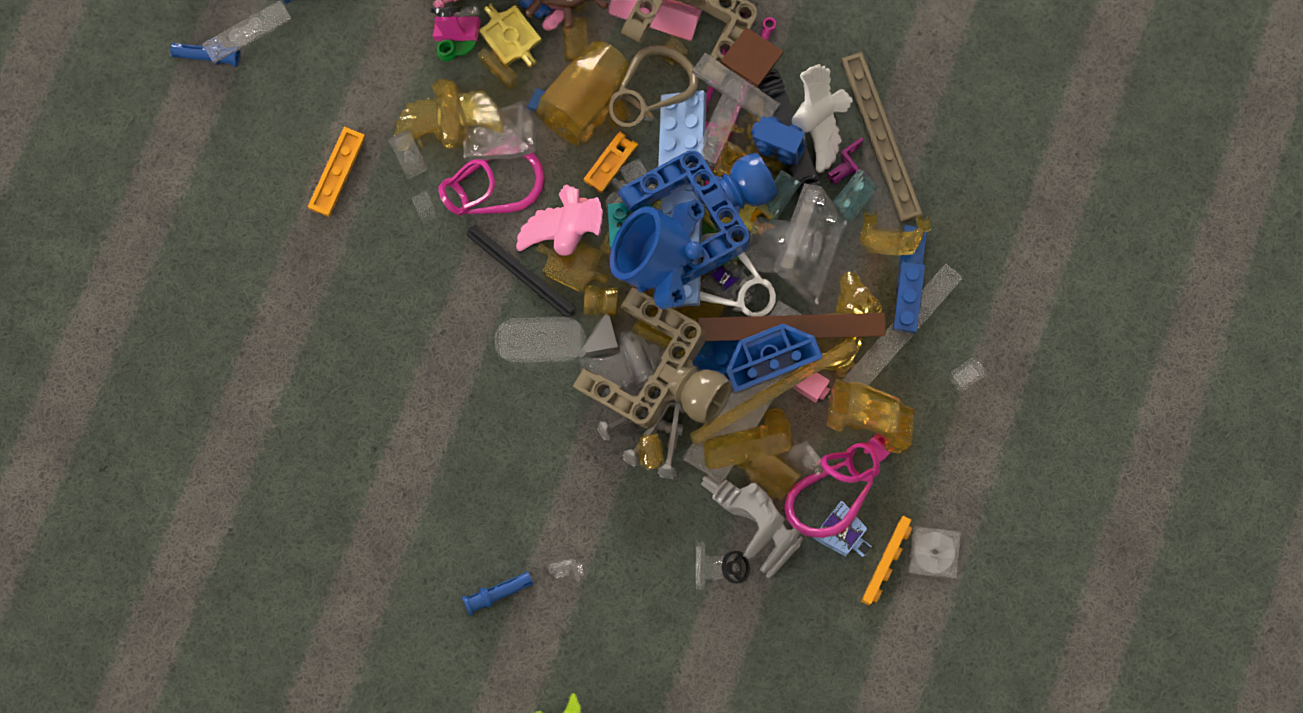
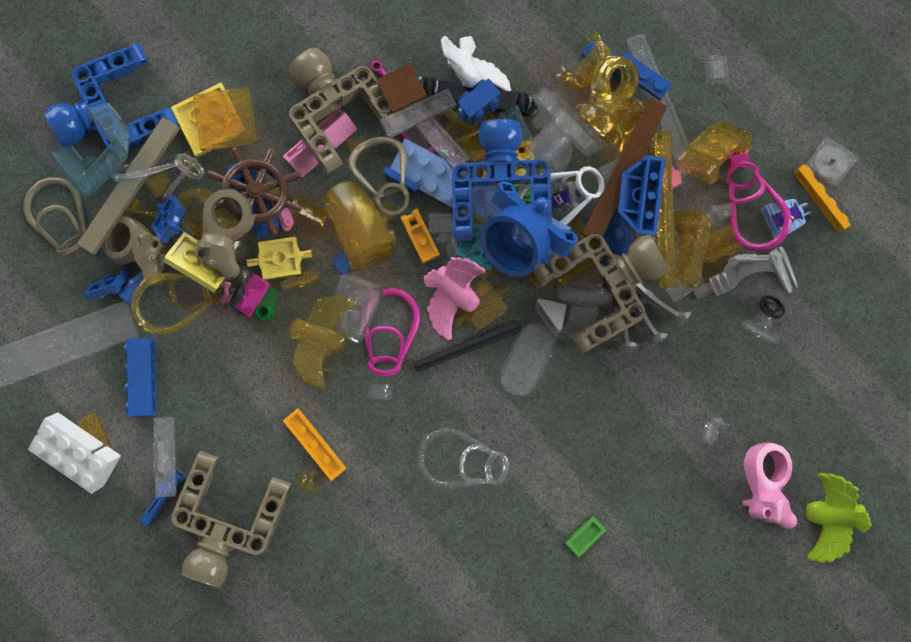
camera: 60 degrees left, 5 degrees up
(192, 125) = (217, 539): none -> dark tan piece
(290, 189) = (309, 487): none -> clear yellow piece
(376, 341) = (475, 445): none -> clear animal
(384, 495) = (585, 536): none -> bright green tile
(408, 154) = (332, 383): clear plate -> none
(486, 597) = (702, 500): blue pin -> none
(522, 662) = (768, 501): none -> bright pink animal
(600, 300) = (523, 299): clear yellow wheel -> none
(650, 451) = (664, 321): clear yellow brick -> none
(658, 113) = (395, 177): none -> blue tile
(844, 270) = (601, 112): none -> clear yellow animal
(848, 166) = (516, 68): magenta bracket -> none
(855, 195) = (543, 72): clear light blue bracket -> none
(881, 137) = (506, 33): dark tan tile -> none

